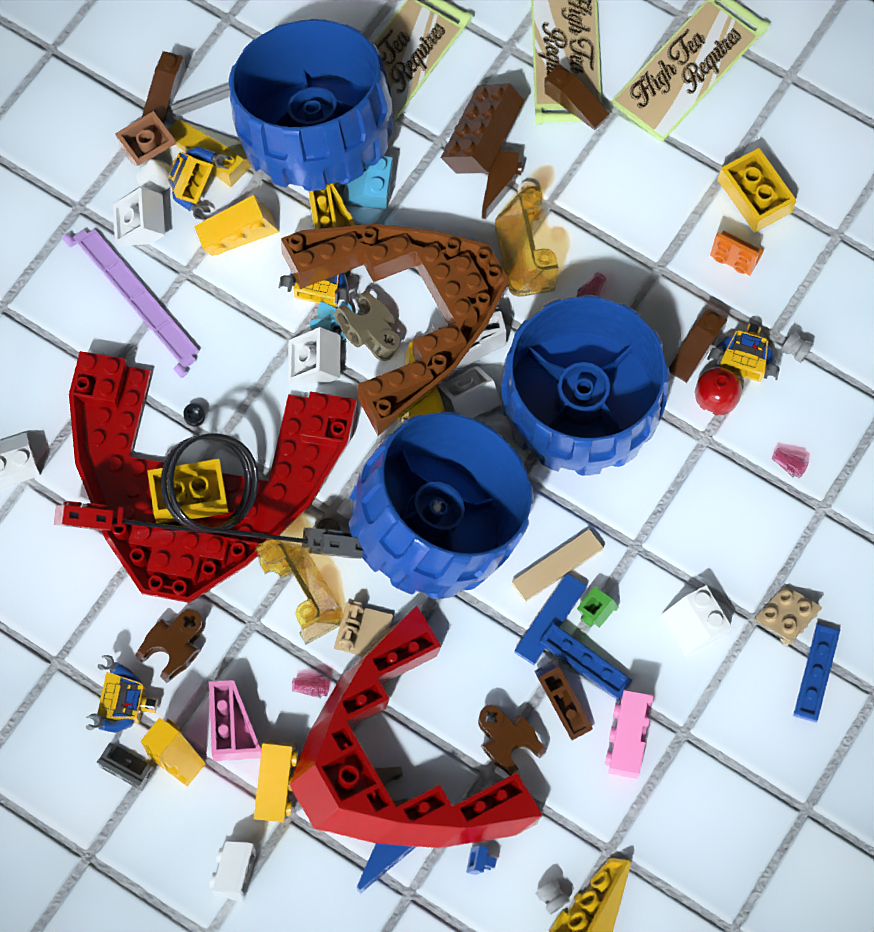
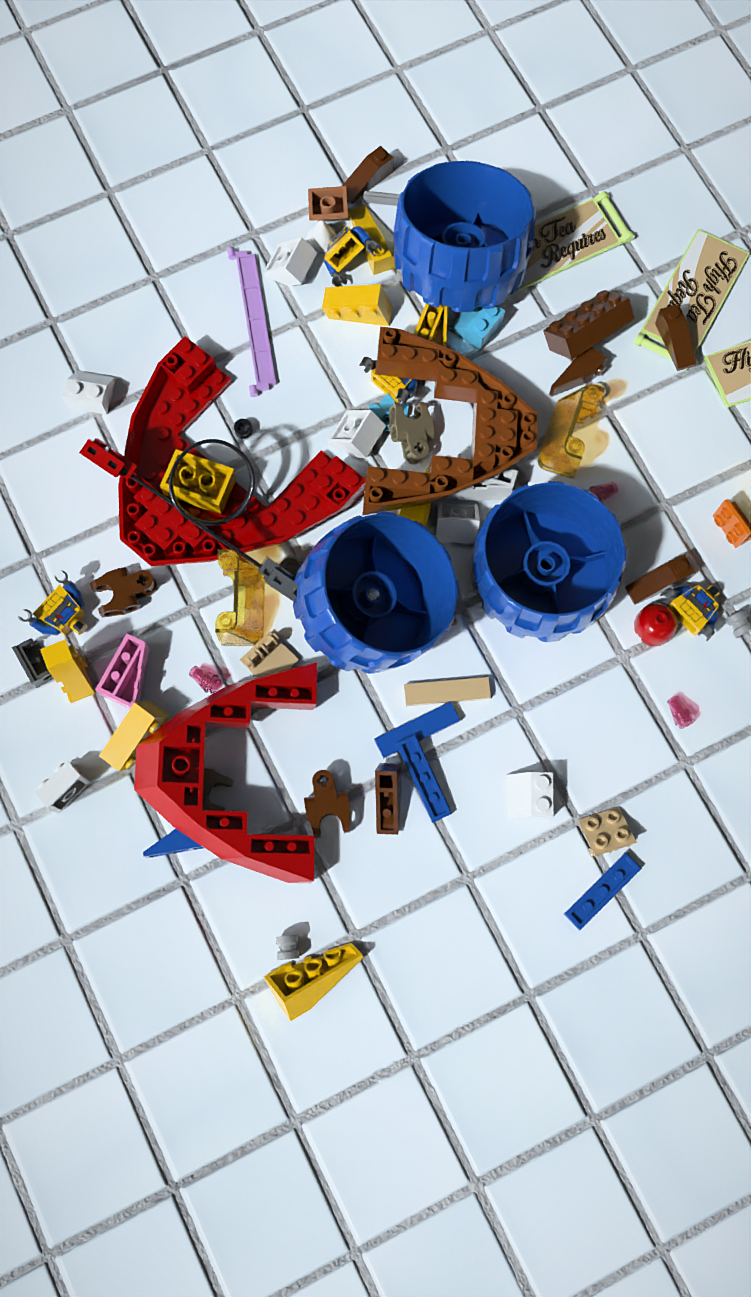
camera: 30 degrees right, 5 degrees up
(479, 860) = (248, 886): blue tile -> none
(596, 601) = (456, 741): bright green brick -> none
(629, 734) = (421, 855): bright pink wedge -> none

